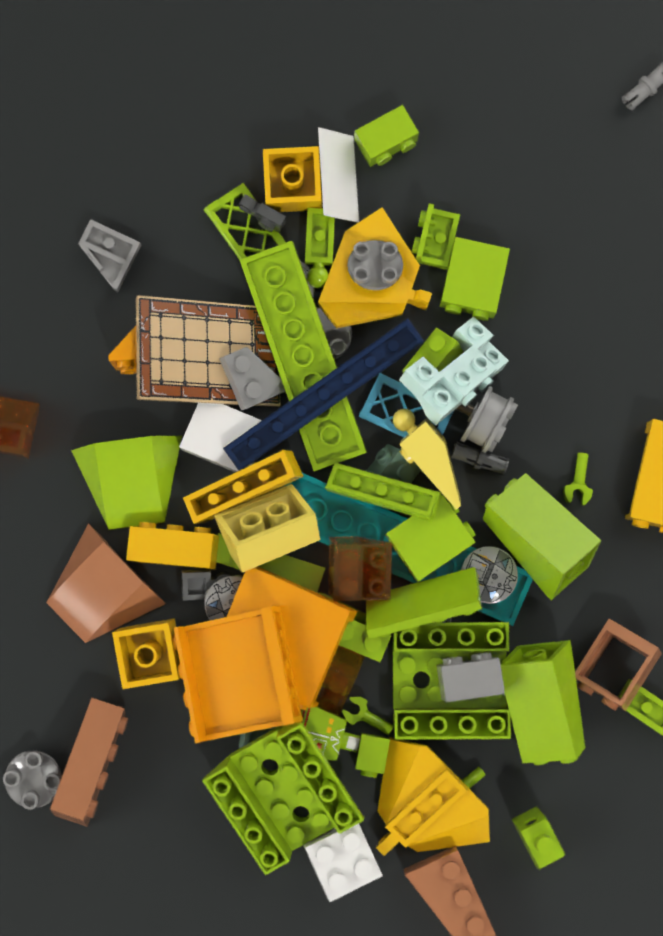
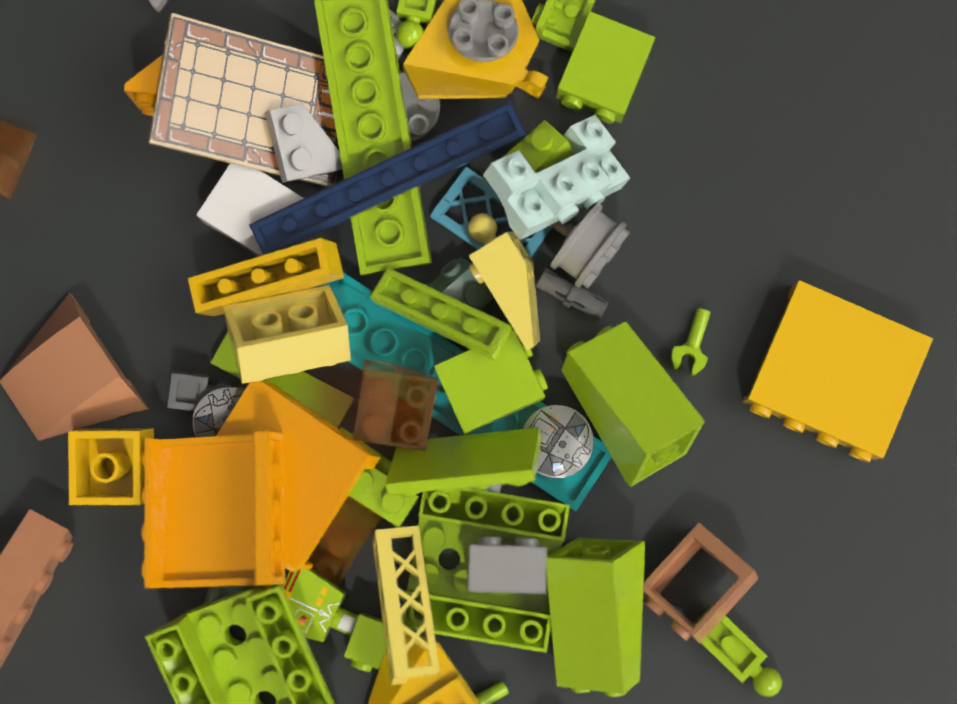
camera: 15 degrees right, 0 degrees up
(130, 478) = (132, 244): lime wedge -> none
(172, 546) = (167, 337): yellow brick -> none
(366, 716) = (369, 589): lime bar -> none
(387, 729) = (390, 604): none -> light yellow fence

